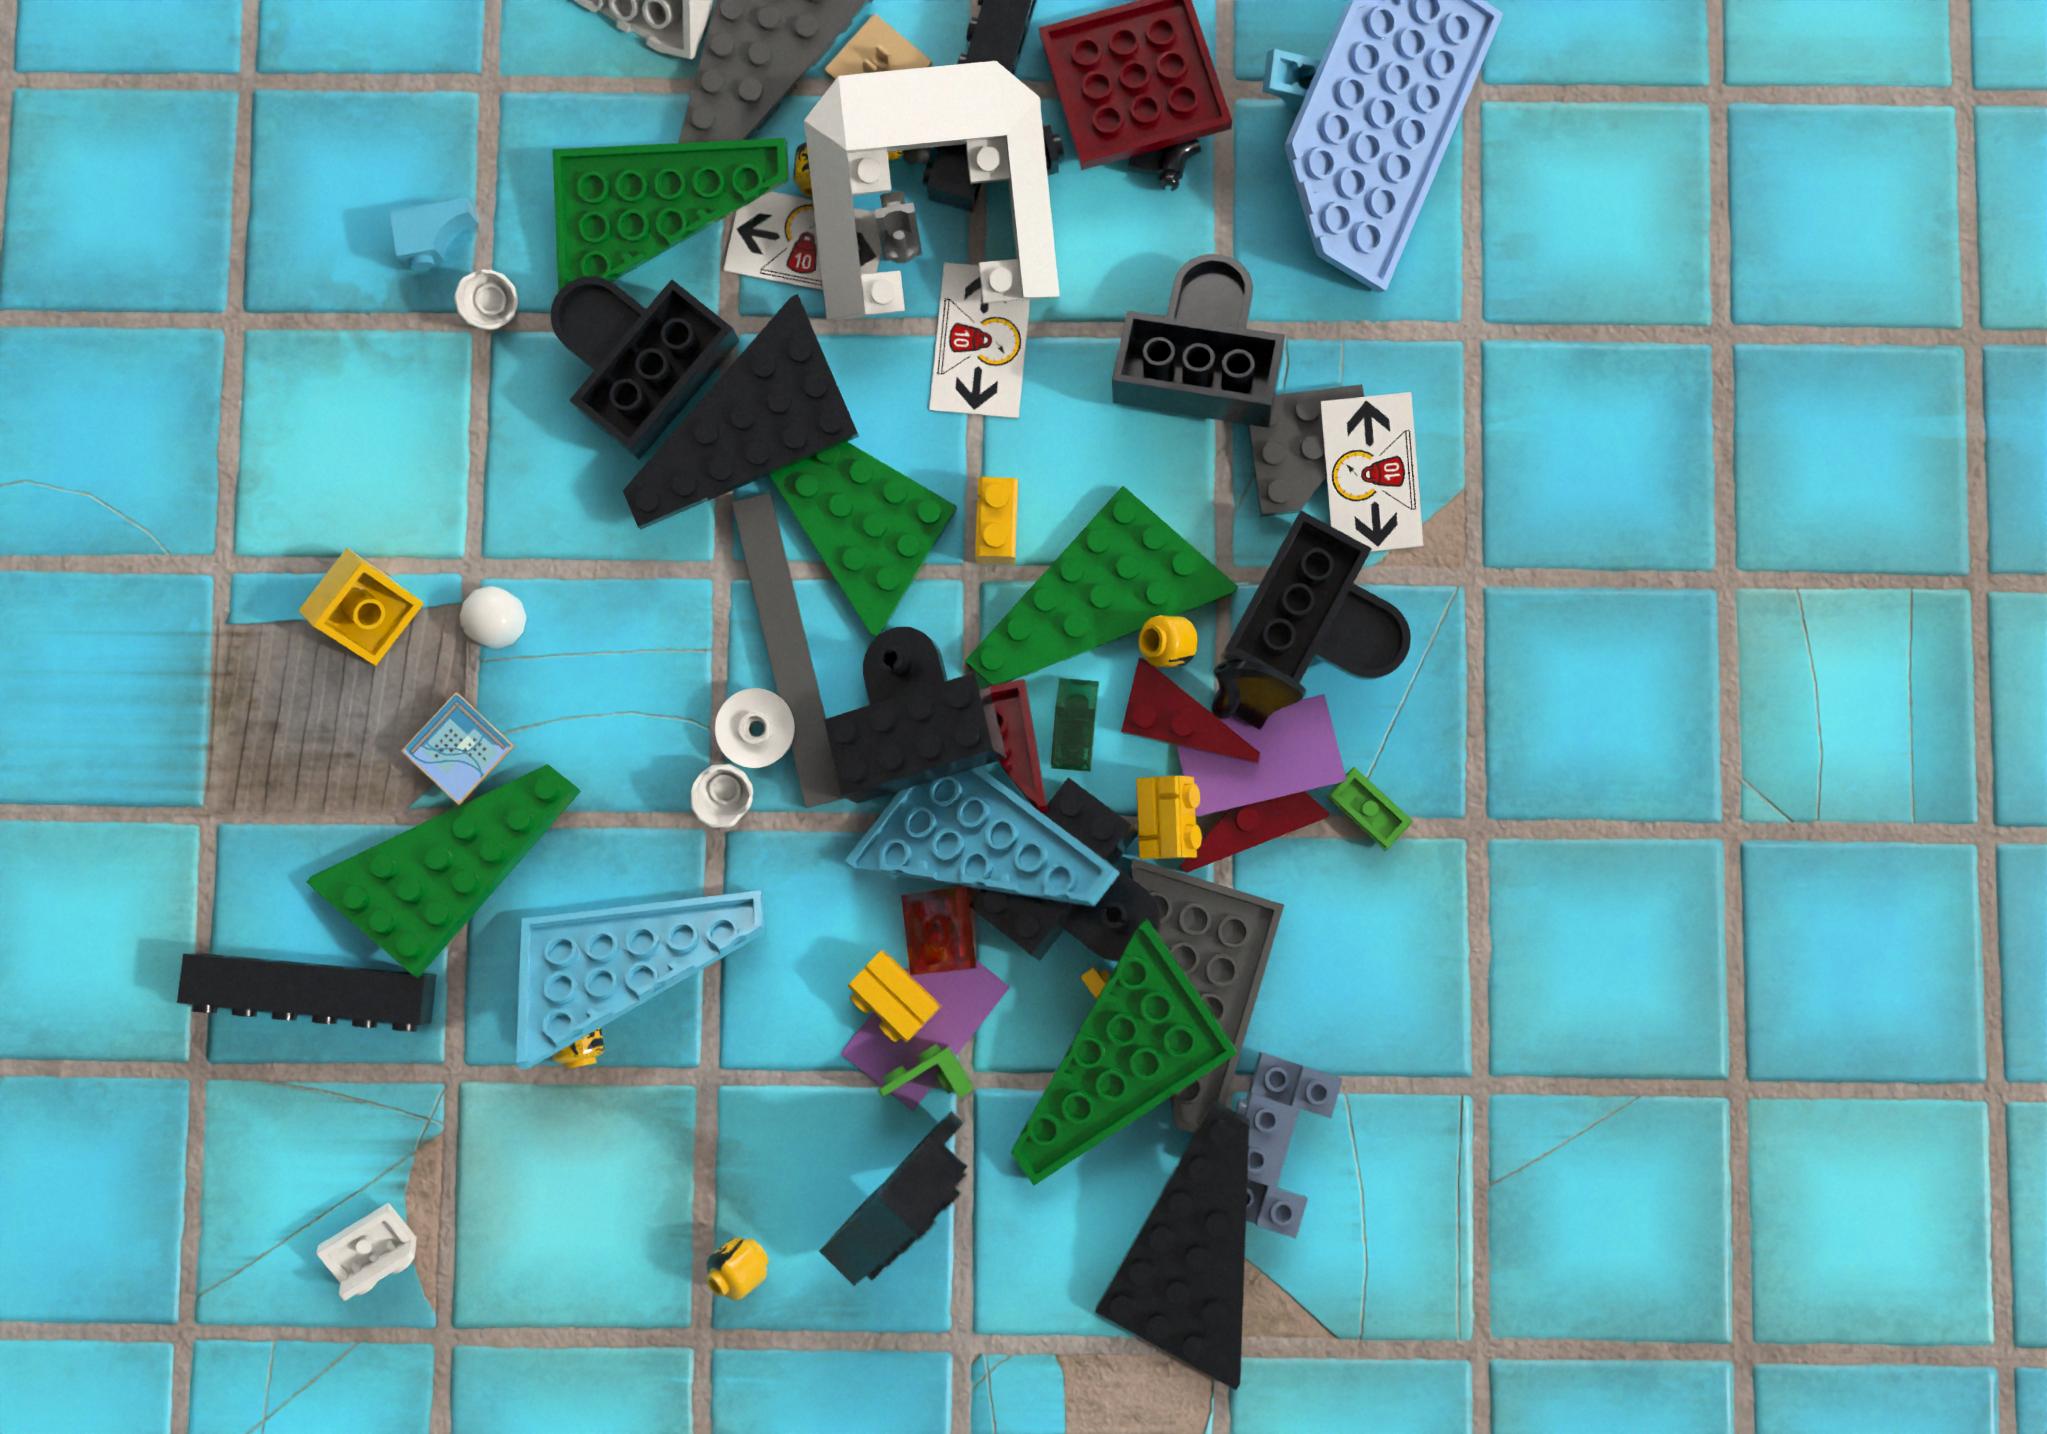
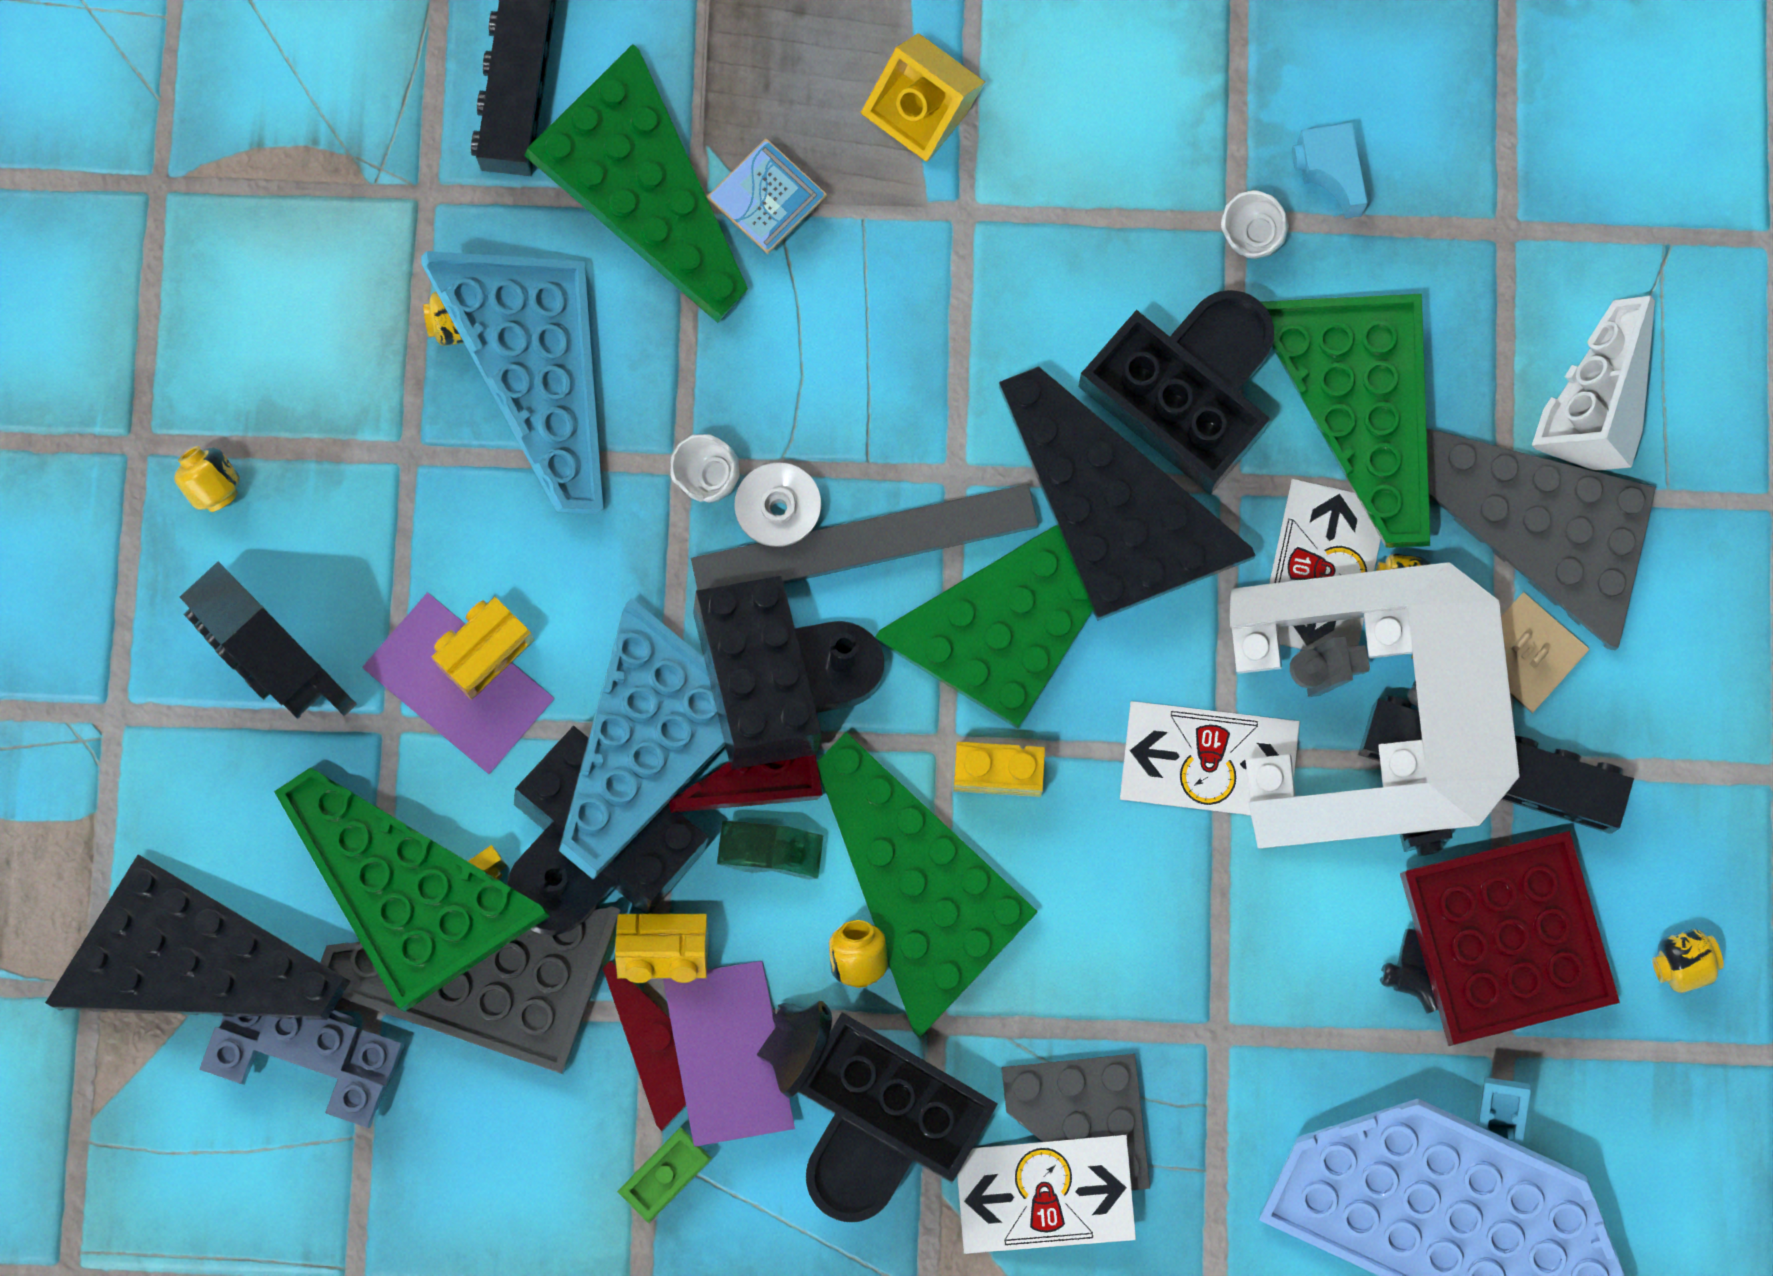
camera: 90 degrees right, 5 degrees down
(368, 1251) = (249, 109): white bracket -> none
(492, 617) = (908, 232): white hair -> none
(938, 931) = (548, 694): clear red plate -> none
(951, 1076) = (395, 706): bright green bracket -> none
(1171, 716) = (778, 952): dark red wing -> none
(1201, 353) = (1183, 999): black brick -> none

